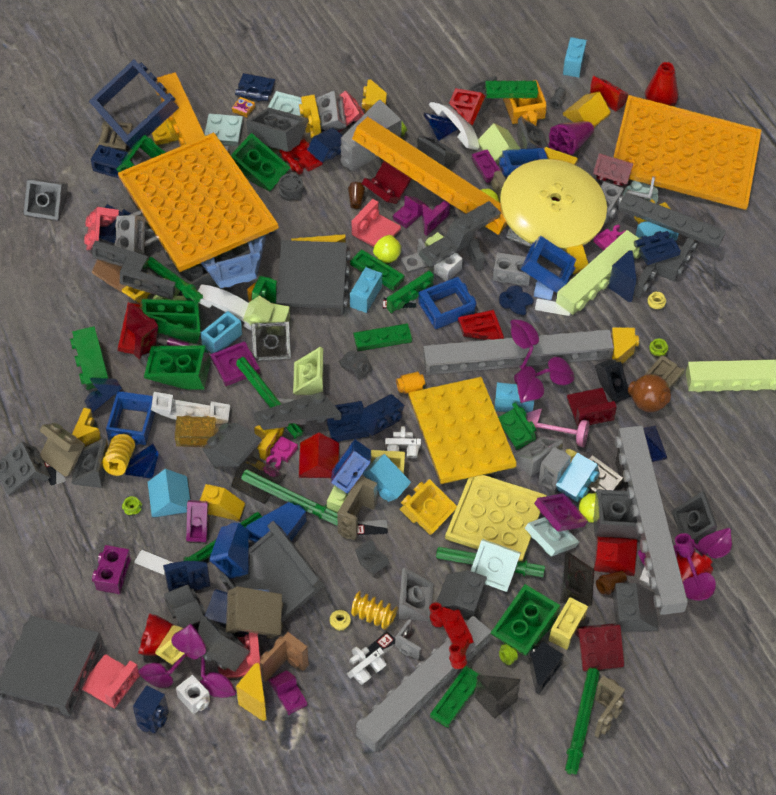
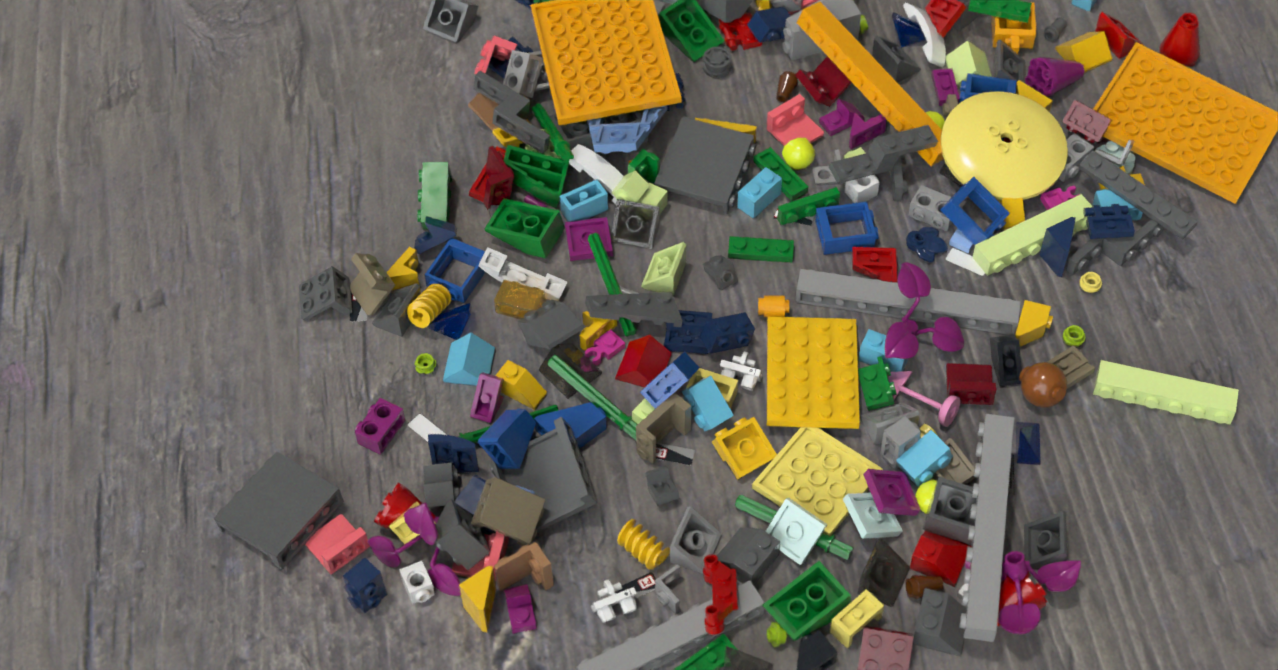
camera: 20 degrees right, 0 degrees up
(340, 625) = (604, 551): light yellow plate -> none

